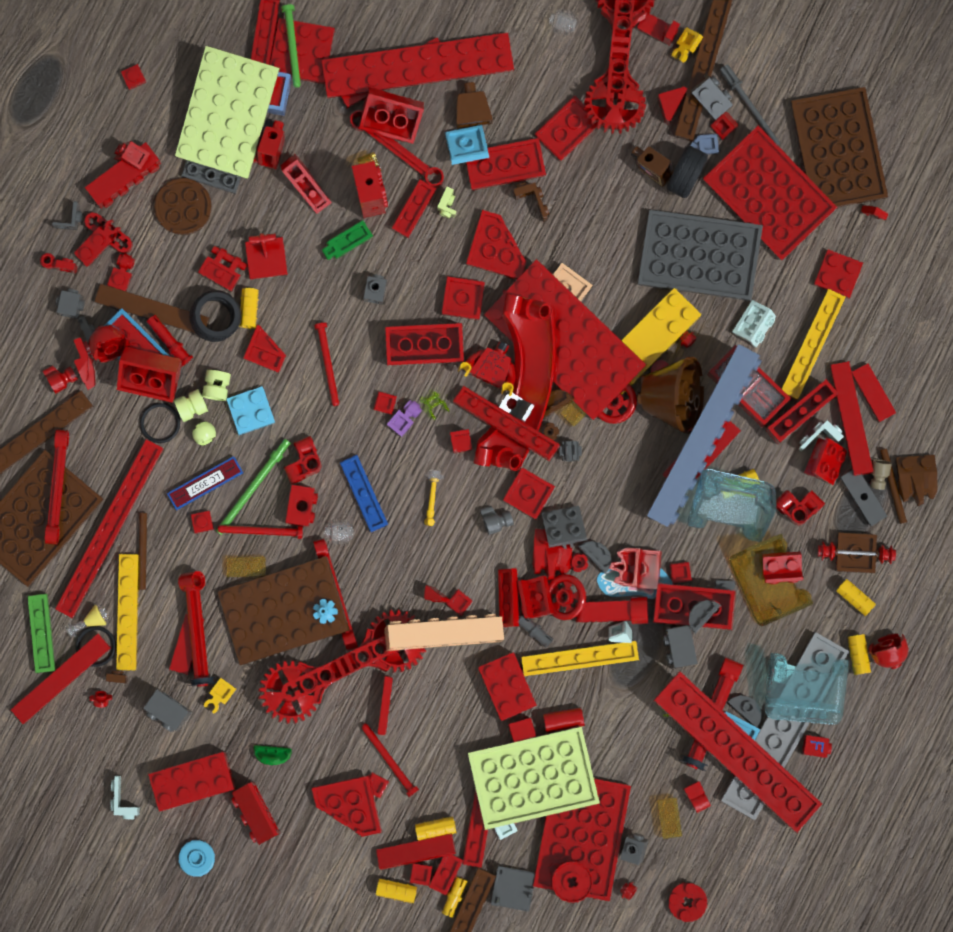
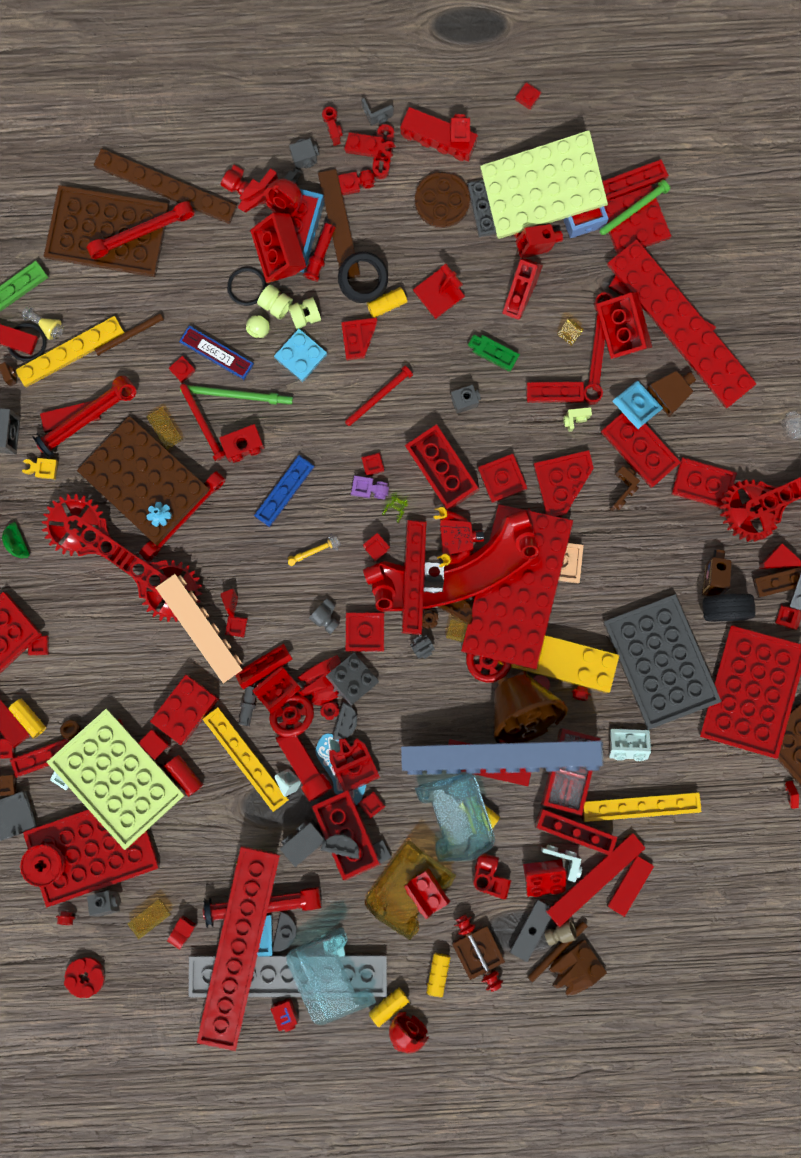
camera: 60 degrees right, 0 degrees up
(109, 528) = (131, 295): red plate -> none
(220, 274) = (402, 261): red plate -> none
(299, 470) = (291, 421): red piece -> none
(339, 531) = (238, 488): clear head -> none
(370, 189) = (548, 340): red brick -> none
(385, 705) = (109, 613): red tile -> none
(389, 760) = (65, 645): red bar -> none
(467, 797) = (70, 729): none -> reddish brown tile
(707, 143) = (764, 611): sand blue tile -> none
(838, 273) = (718, 793): red plate -> none

